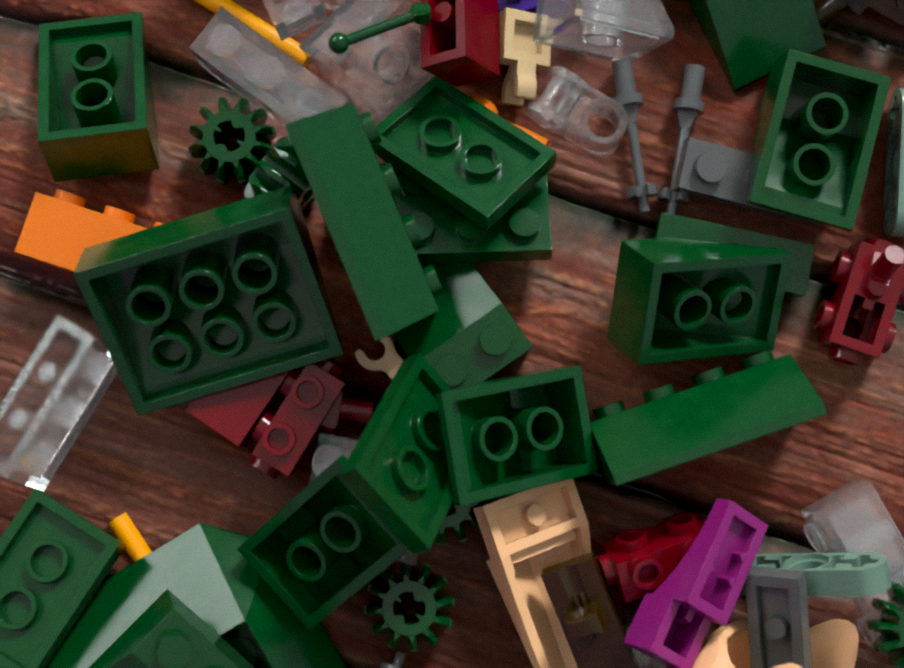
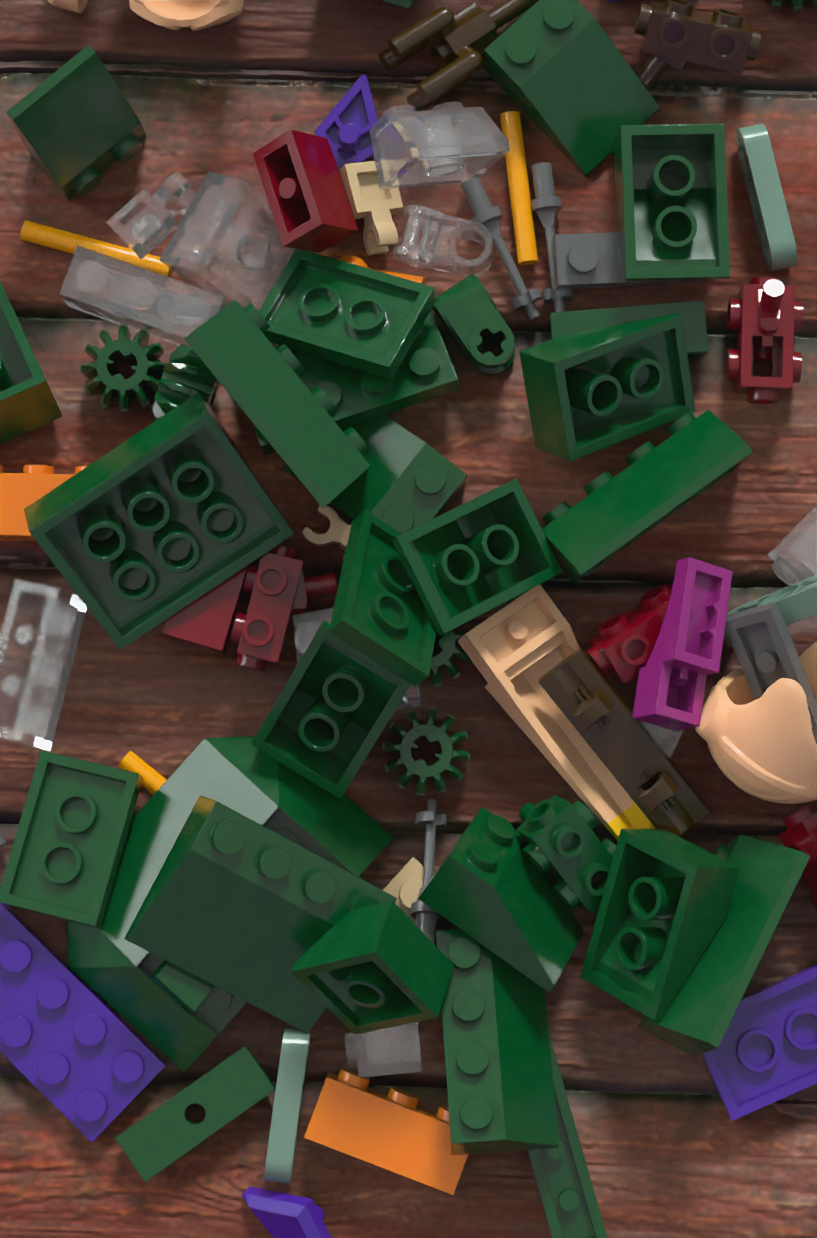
camera: 15 degrees left, 0 degrees up
(419, 13) = (266, 196): dark green hinge -> none
(584, 194) = (472, 318): none -> dark green piece
(666, 85) = (519, 189): none -> light orange bar

